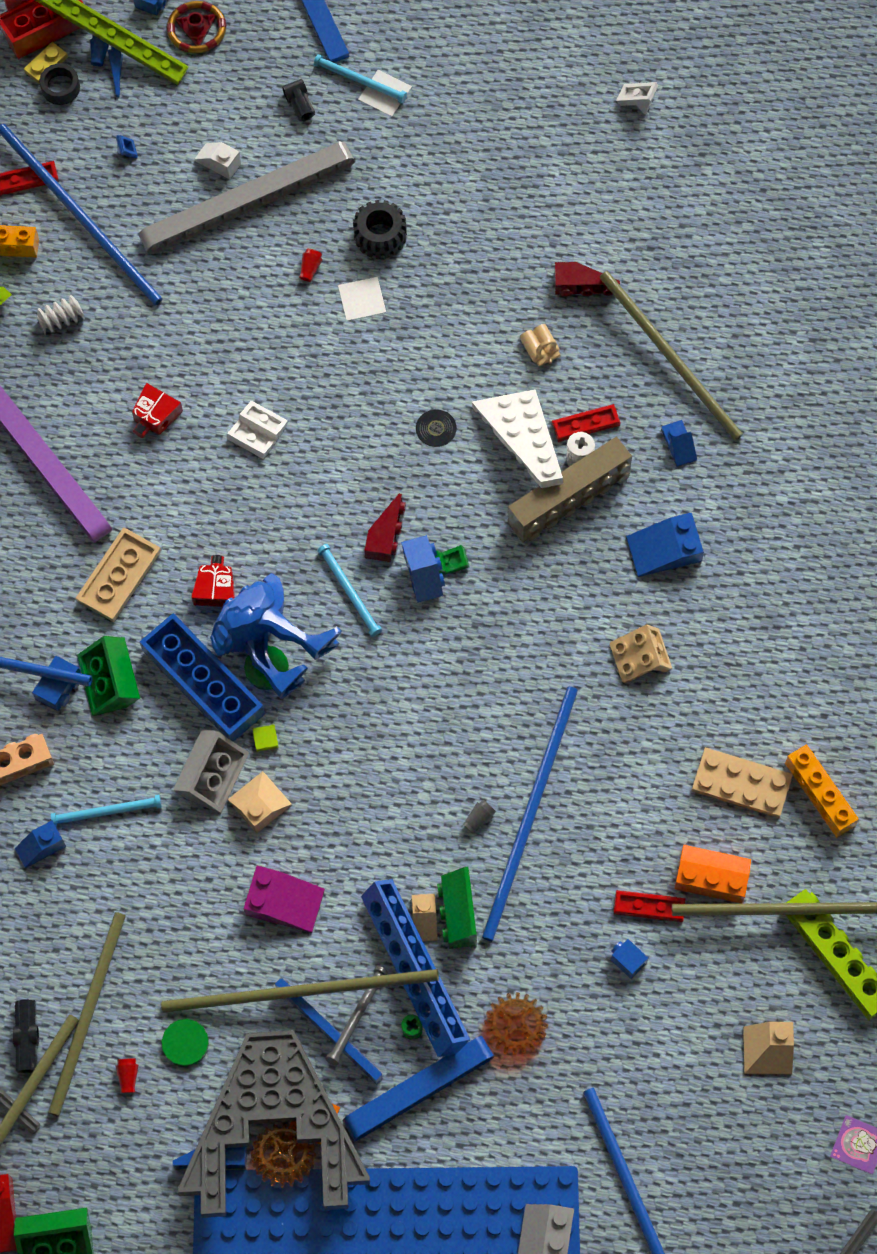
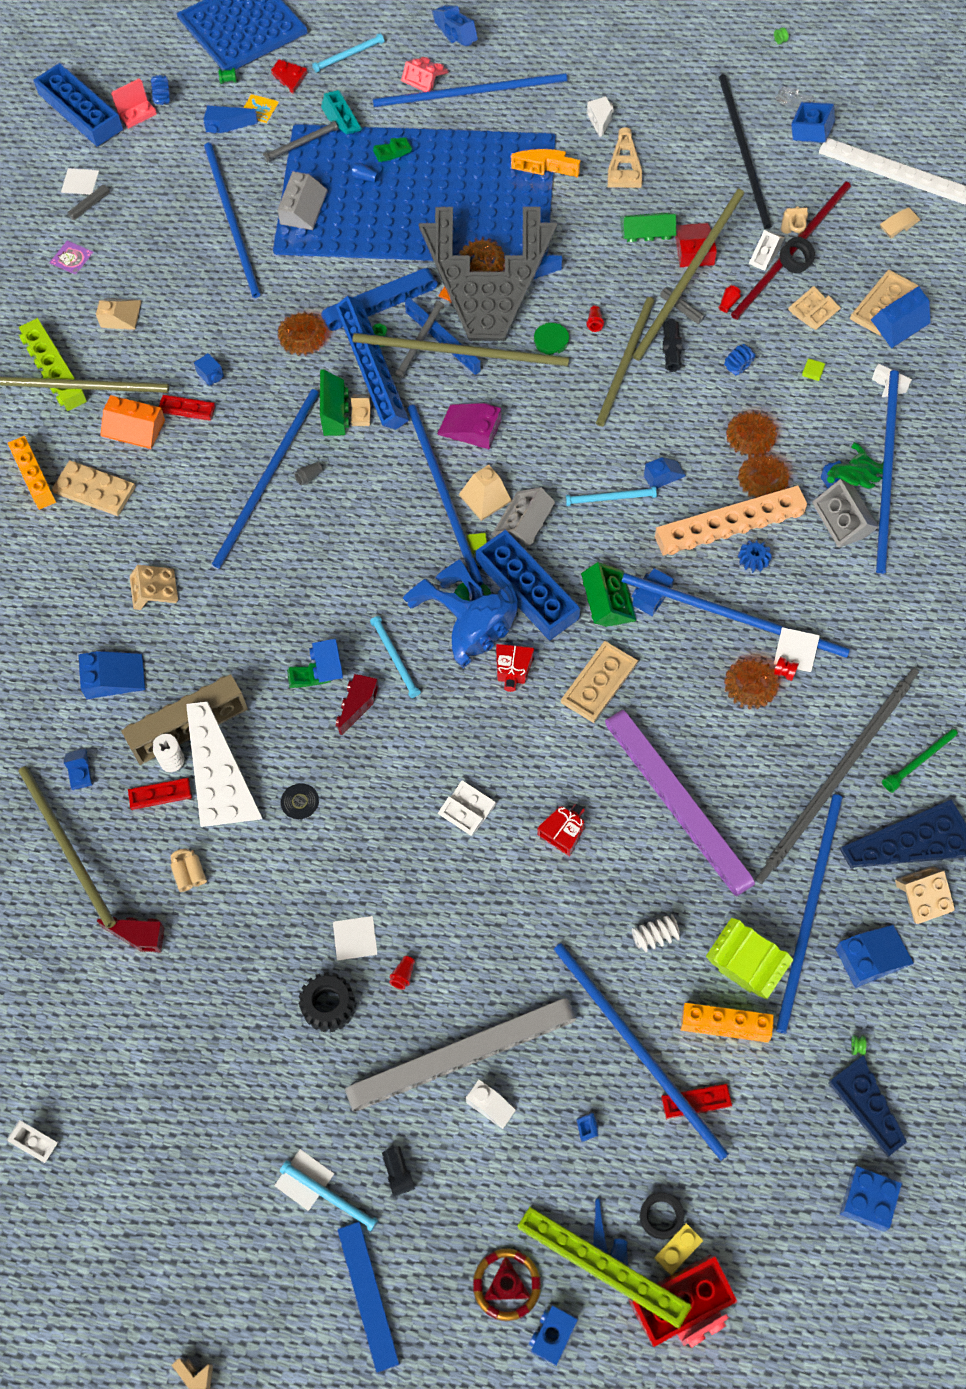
camera: 175 degrees left, 5 degrees down
(310, 801) = (445, 496): none -> blue piece

